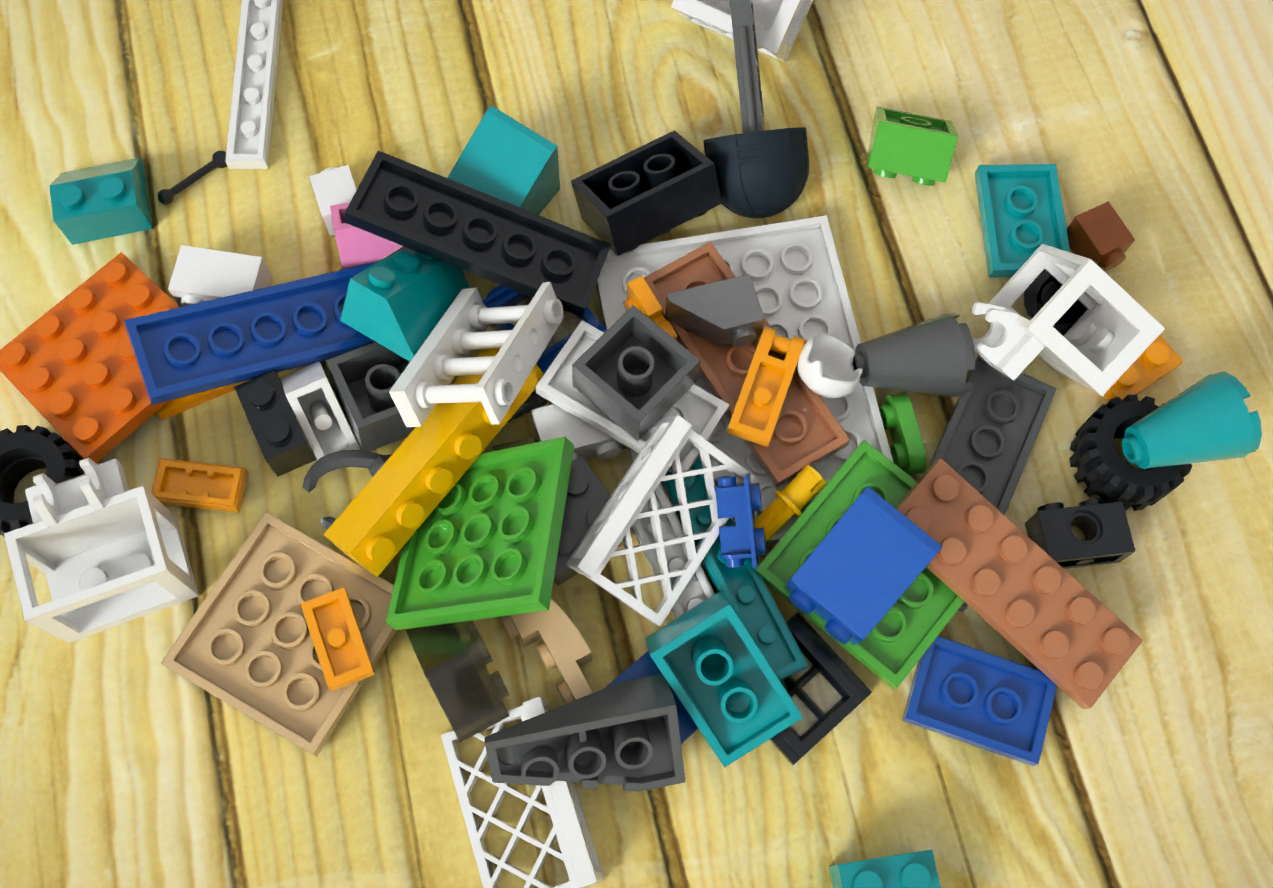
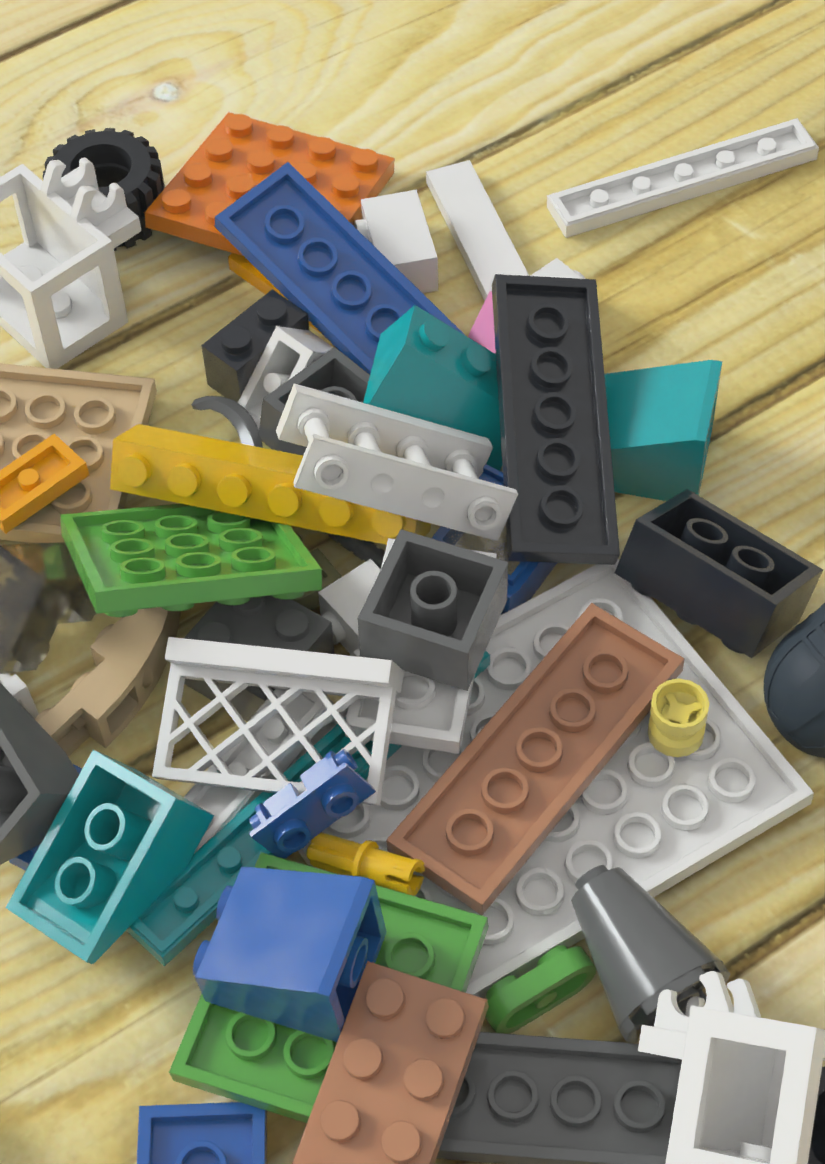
camera: 75 degrees right, 15 degrees down
(101, 201) = (443, 118): teal slope -> none
(166, 196) = (482, 169): black hinge -> none
(200, 485) = (164, 320): light orange plate -> none
(235, 223) = (474, 224): none -> white tile
(643, 298) = (551, 622): light orange plate -> none
(719, 311) = (581, 689): flat silver slope -> none
(756, 256) = (678, 717): none -> light yellow wheel
(765, 388) = (505, 773): light orange plate -> none
(821, 692) = (131, 996): black piece -> none
(828, 366) = (564, 832): white hair -> none

